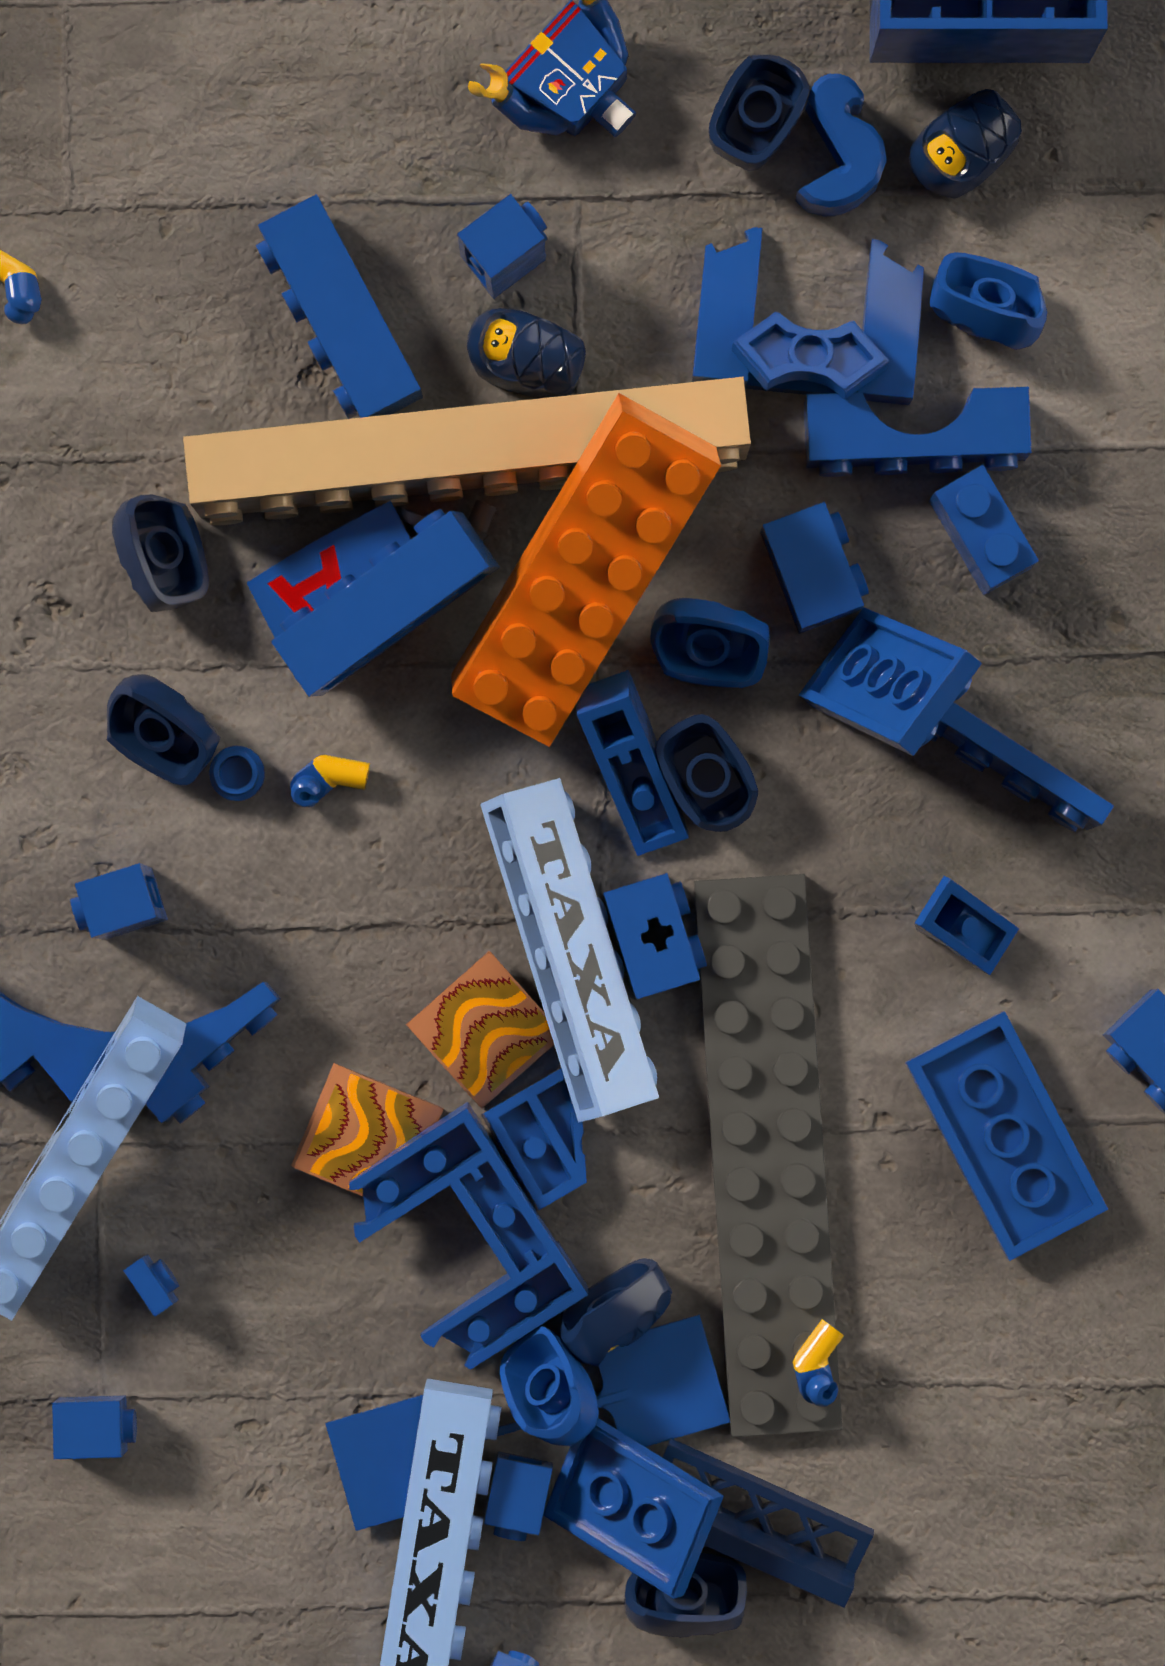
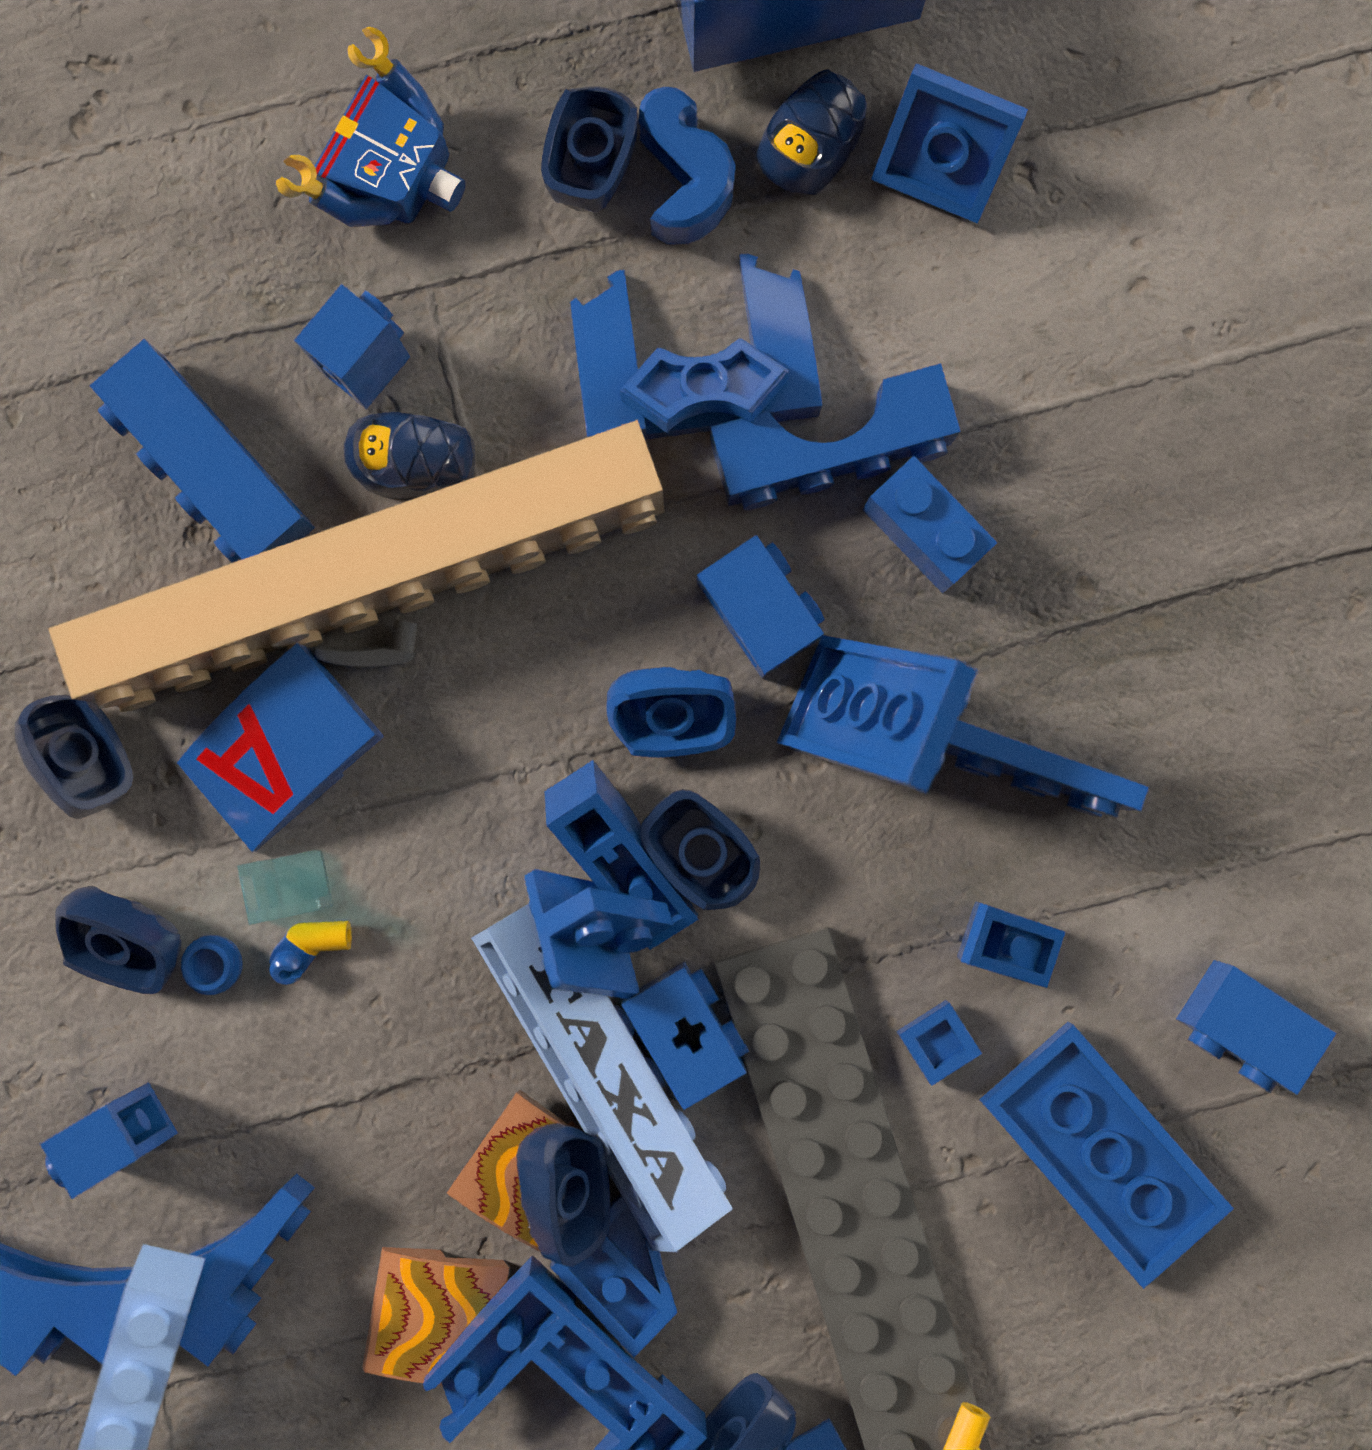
camera: 10 degrees left, 0 degrees up
(323, 719) = (285, 886): none -> clear light blue panel
(385, 602) = (311, 753): blue brick -> none
(514, 1043) = (564, 1192): none -> dark blue piece
(585, 570) = (518, 666): orange brick -> none
(595, 819) = (591, 933): none -> blue bracket
(880, 1000) = (939, 1042): none -> blue plate
(989, 299) = (876, 286): blue piece -> none
(1084, 188) = (948, 143): none -> blue bracket

